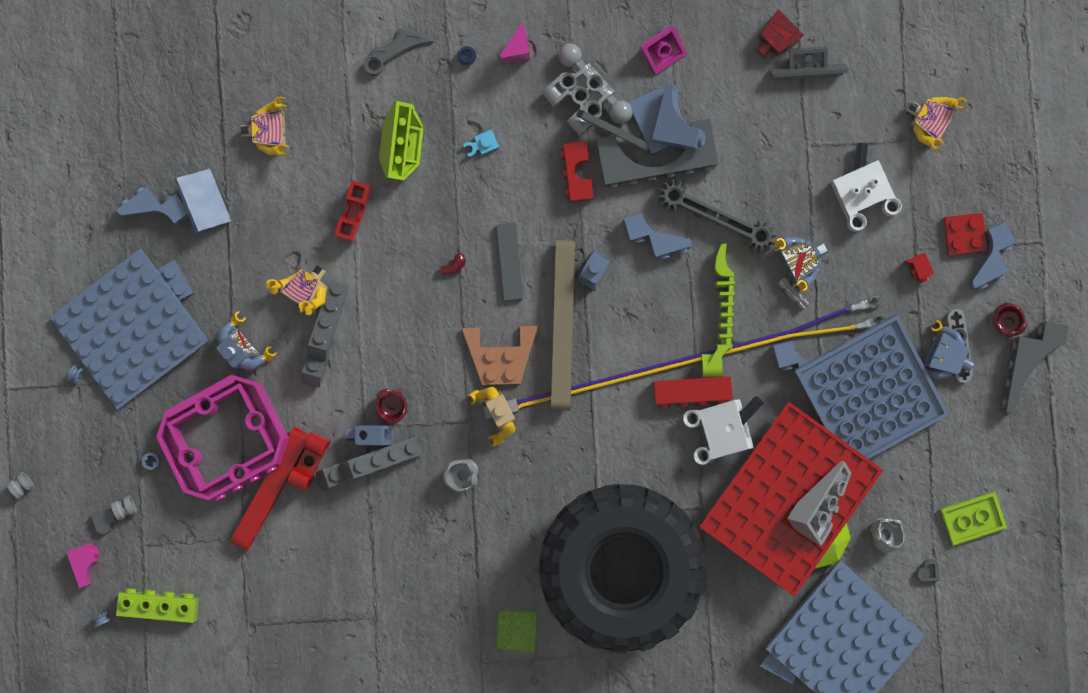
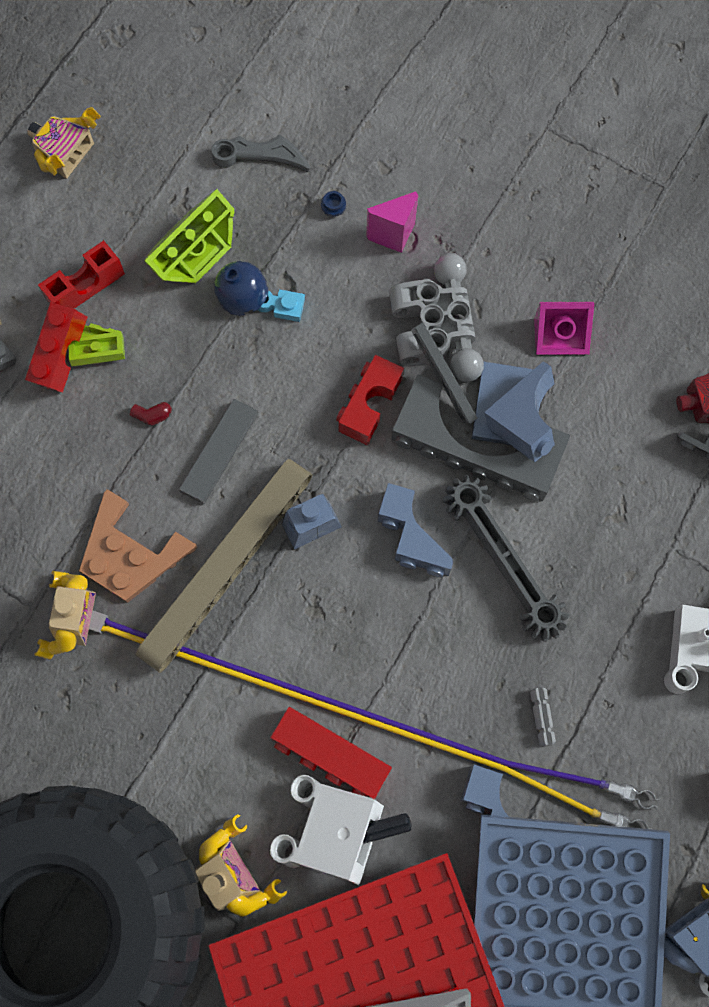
camera: 35 degrees right, 15 degrees down
(370, 261) = (48, 361): none -> red arch
(388, 246) = (97, 346): none -> lime wing
(451, 152) = (240, 288): none -> dark blue cylinder
(681, 489) = (227, 877): none -> torso
(713, 362) = (379, 734): lime piece -> none
(800, 259) = (579, 677): torso -> none

